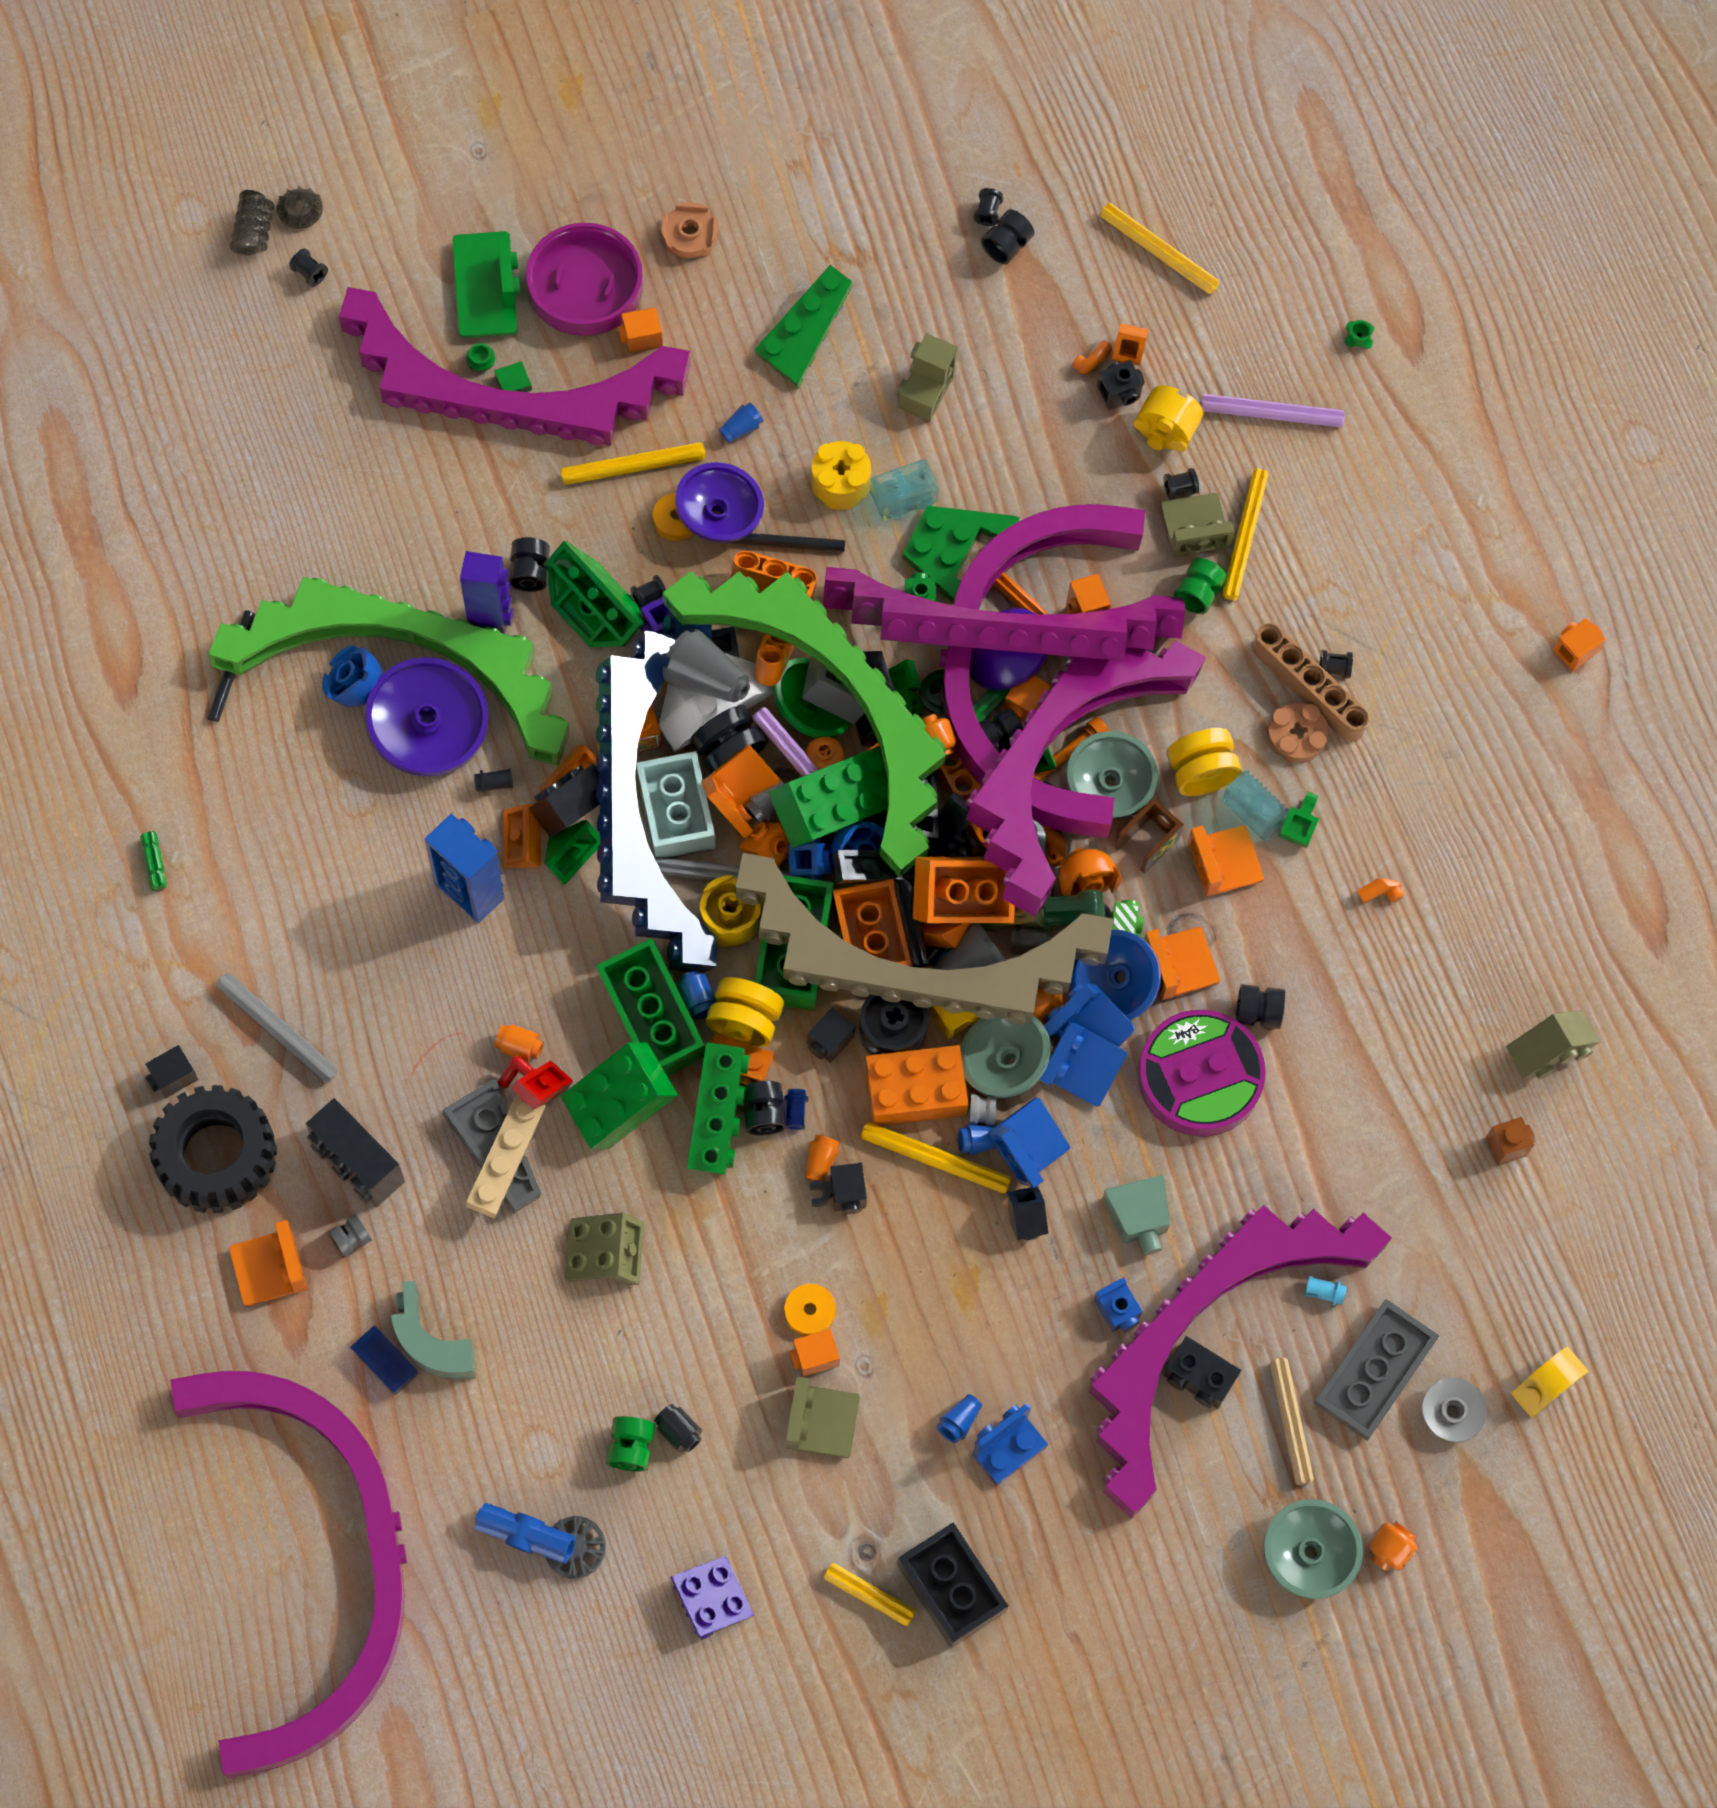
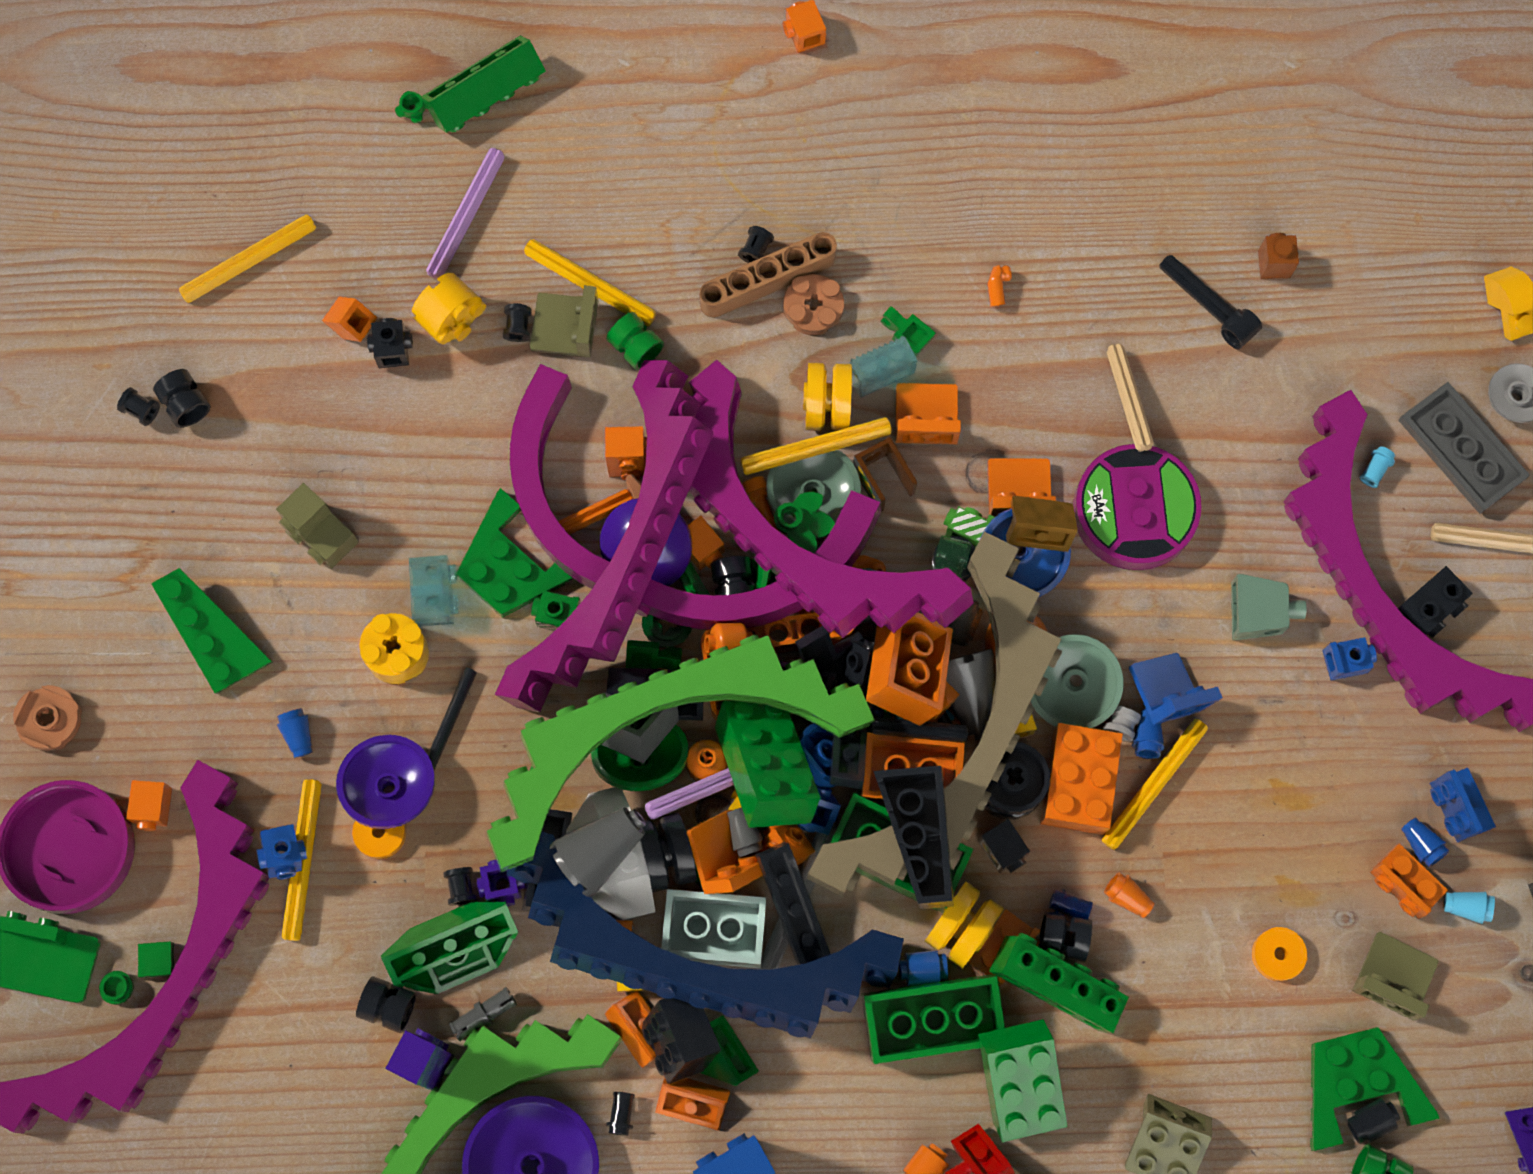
camera: 70 degrees left, 5 degrees up
(546, 645) = (483, 1014): none -> dark grey pin
(631, 439) = (281, 852): none -> blue brick
(718, 858) = (792, 903): none -> black plate
(722, 1406) = (1358, 1070): none -> green wing
(730, 928) = (851, 926): yellow brick -> none
(765, 570) = (504, 744): orange beam -> none
(807, 929) = (920, 826): none -> black wedge
(815, 1353) = (1332, 962): orange brick -> none
(845, 1187) = (1168, 881): black brick -> none
(912, 1476) = (1470, 905): none -> medium azure cone
(917, 1414) = (1408, 882): none -> orange bracket
(1027, 1213) = (1241, 713): black brick -> none
(1075, 776) = (809, 520): none -> green plate
(1084, 1064) = (1103, 609): blue bracket -> none
(1088, 871) = (909, 544): orange cylinder -> none
(1092, 1011) = (1066, 592): blue bracket -> none
(1098, 355) = (350, 359): orange arm -> none
(1144, 975) = (1042, 524): none -> pearl gold panel
(1151, 763) = (815, 446): none -> yellow axle
(1260, 1006) = (1089, 427): black wheel -> none
(1308, 1035) = (1130, 397): none -> tan axle
(1402, 384) = (484, 84): none -> green brick
(1424, 1118) = (1237, 326): none -> black axle
(1553, 1041) = (1200, 186): olive brick -> none

